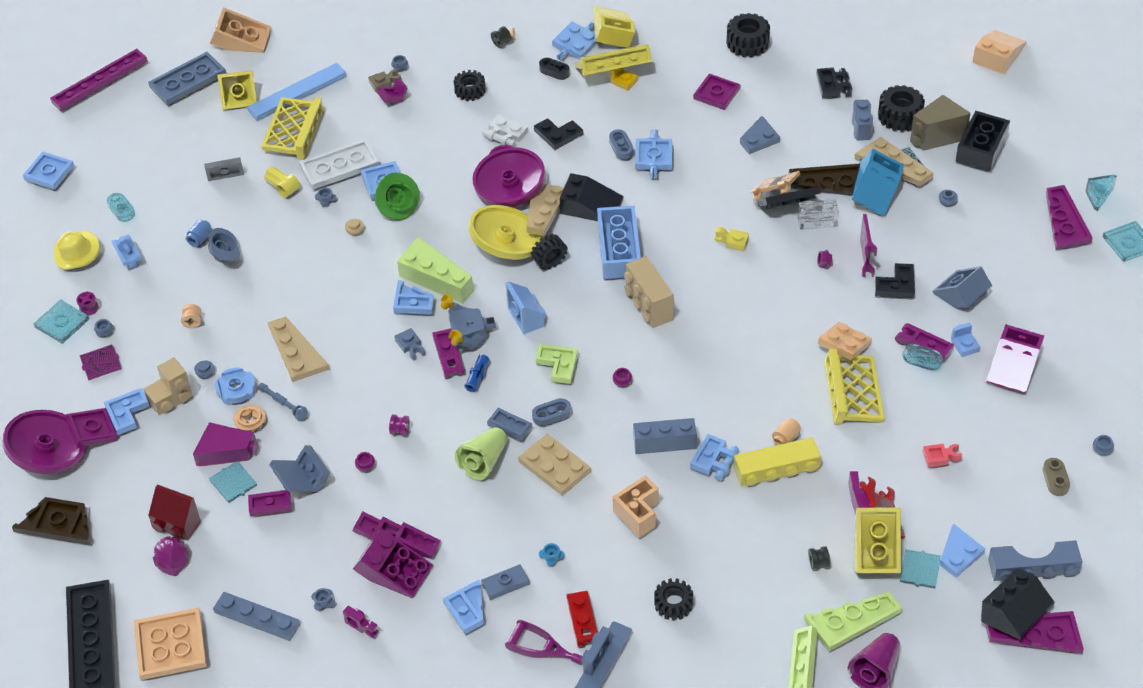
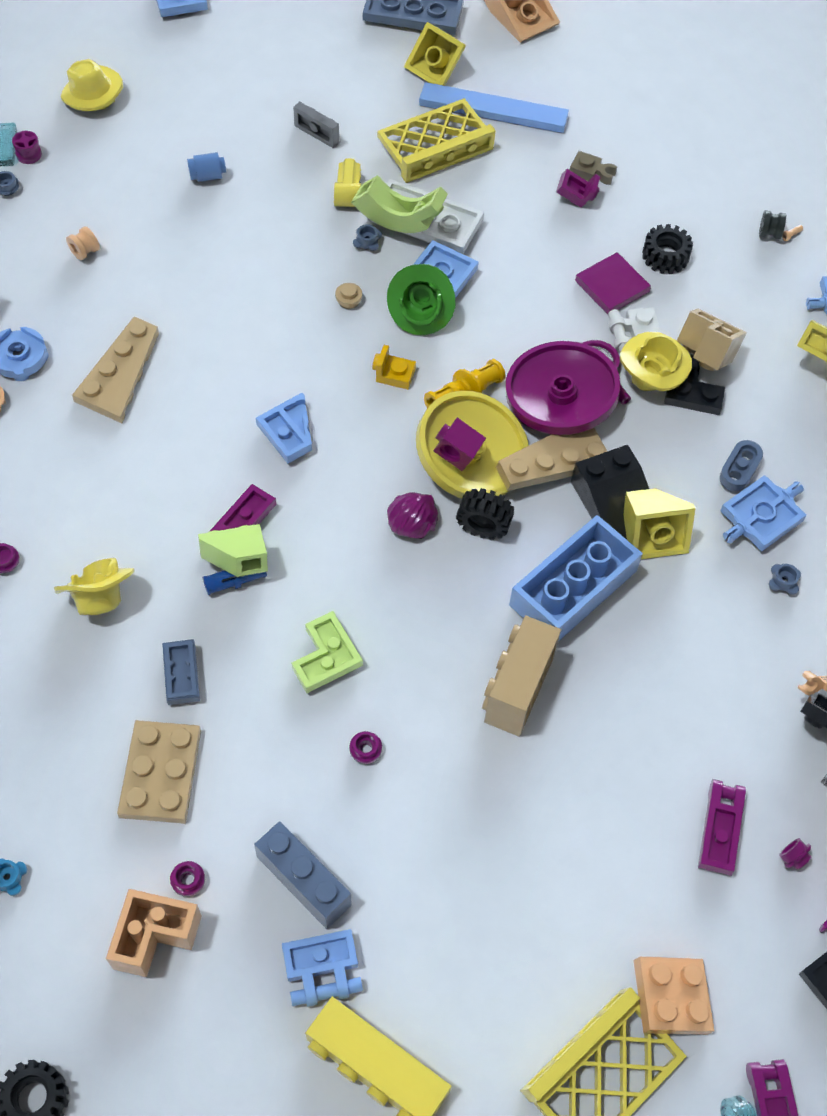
camera: 45 degrees right, 10 degrees up
(120, 207) = (187, 82): clear light blue plate -> none
(127, 251) = (122, 126): light blue hips -> none
(204, 369) = (20, 308): sand blue plate -> none
(223, 245) = (201, 198): sand blue piece -> none
(299, 412) = (29, 437): sand blue piece -> none
(332, 169) = (396, 211): none -> yellowish green arch
(399, 62) = (630, 163): sand blue plate -> none
(399, 425) = (82, 551): magenta wheel -> none
(409, 342) = (224, 471): sand blue plate -> none
(424, 233) = (392, 369): none -> yellow bracket
(428, 425) = (98, 587): none -> light yellow hat
(434, 271) = (348, 410): yellowish green wedge -> none
(464, 212) = (474, 380): none -> yellow piece
(465, 120) = (612, 283): none -> magenta tile
(466, 324) = (293, 512): sand blue torso -> none
(470, 356) = (235, 550): none -> yellowish green slope
(481, 453) = (106, 674): yellowish green cone -> none
(505, 231) = (458, 443): none -> magenta brick
(517, 276) = (412, 515): none -> magenta hair
(524, 308) = (373, 551): light blue slope -> none
(534, 132) = (656, 361): none -> light yellow hat
(544, 103) = (710, 339): none -> tan brick
(549, 411) = (240, 705): sand blue plate -> none
(554, 68) = (780, 312): black beam -> none
(621, 189) = (658, 523): none -> light yellow slope
(621, 479) = (183, 869): none -> magenta plate
(694, 170) = (788, 572): none -> sand blue plate
(734, 239) = (719, 713): light yellow plate -> none
(786, 432) = (439, 1036): light nougat brick -> none
(788, 275) = (722, 828): none -> magenta plate

